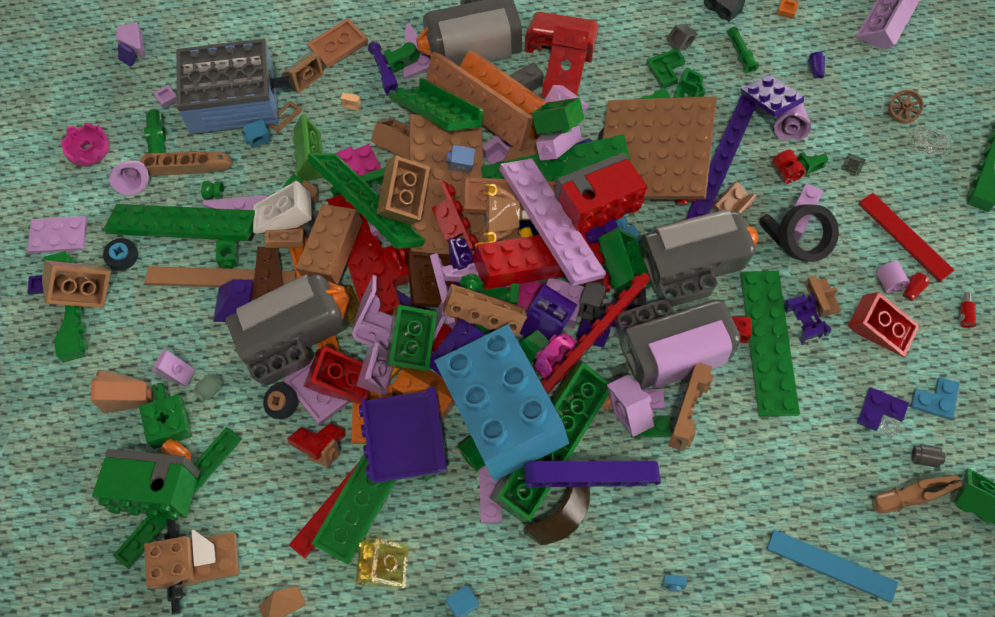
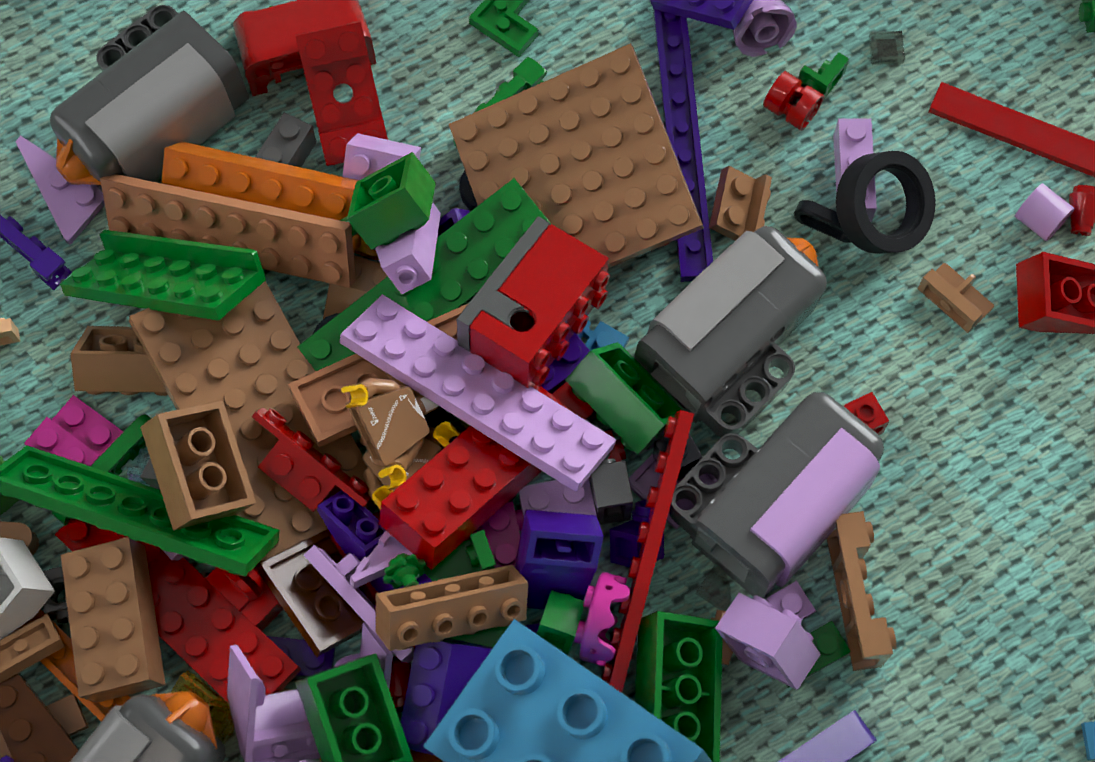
camera: 30 degrees left, 5 degrees up
(402, 57) = (46, 207): green leg -> none
(460, 158) = (261, 354): medium blue brick -> none
(495, 149) = (304, 301): lavender panel -> none
(691, 84) = (562, 26): green slope -> none
(769, 344) = (919, 416): green plate -> none
(803, 310) = (946, 324): dark purple piece -> none

